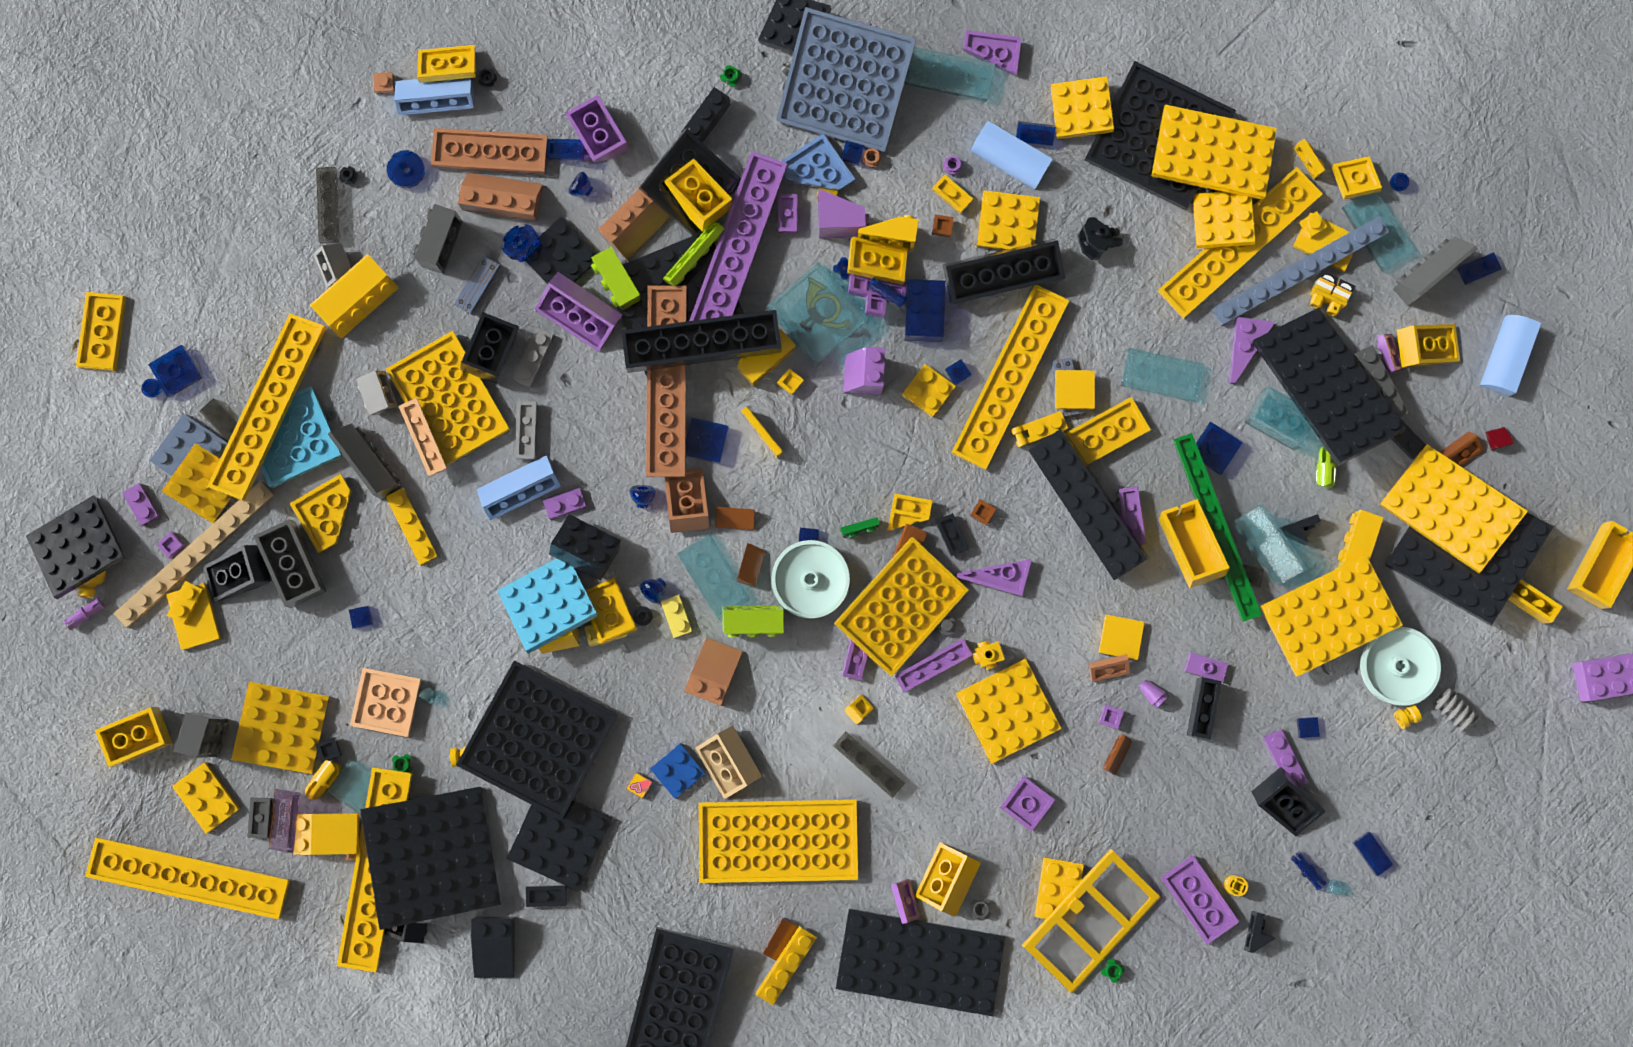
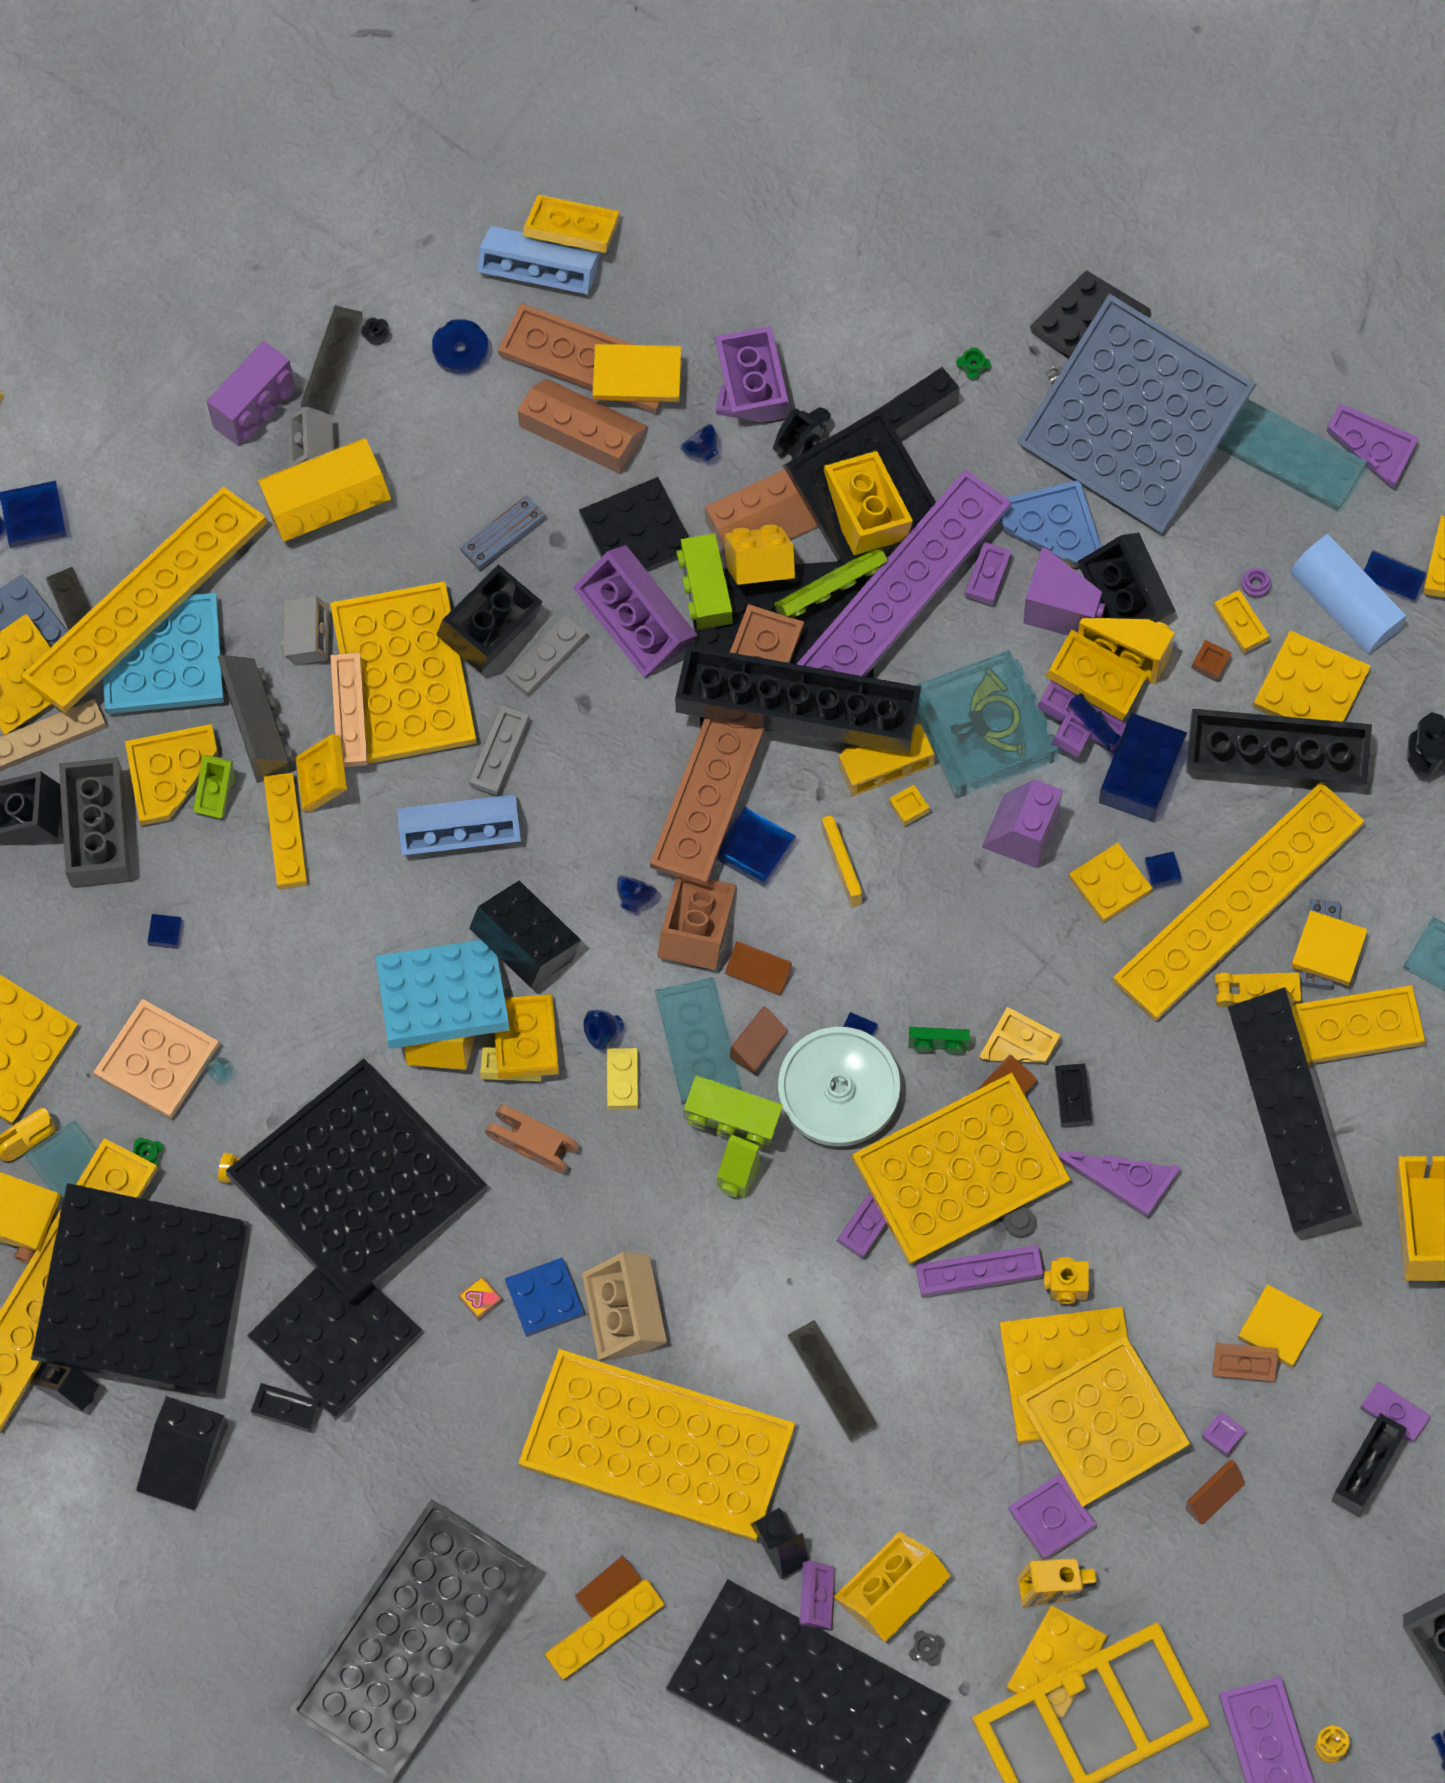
camera: 25 degrees right, 15 degrees down
(284, 246) = (251, 394): none -> medium lavender brick
(328, 749) = (50, 1096): black plate -> none
(356, 515) = (213, 786): none -> lime slope
(383, 82) = (472, 224): nougat plate -> none
(420, 484) = (321, 773): none -> yellow tile
(438, 238) = (471, 450): dark grey brick -> none
(487, 73) = (618, 254): black plate -> none
(521, 251) = (580, 503): clear blue plate -> none
(524, 152) = (637, 373): none -> yellow tile
(564, 503) = (510, 868): medium lavender plate -> none
(565, 149) = (702, 389): clear blue plate -> none
(635, 675) = (531, 1138): none -> nougat piece
(642, 159) = (801, 432): none -> black hinge
(643, 250) = (759, 554): none -> yellow brick
(649, 616) = (573, 1069): black plate -> none
(713, 671) = (647, 1174): nougat slope -> none
(767, 653) = (738, 1167): none -> lime slope
(838, 268) = (1037, 671): clear blue plate -> none
(852, 152) = (1113, 519): clear blue plate -> none
(859, 709) = (845, 1299): yellow slope -> none
(871, 152) = (1144, 529): nougat plate -> none
(872, 876) = (780, 1543): none -> black slope
(876, 193) = (1127, 580): none -> black slope
(983, 512) = (1131, 1078): dark orange plate -> none
(1036, 848) = (1053, 1581): none -> yellow torso
(1040, 737) = (1103, 1421): none -> yellow plate
(1132, 512) = (1358, 1149): medium lavender plate -> none
(1153, 693) = (1300, 1422): medium lavender cone -> none

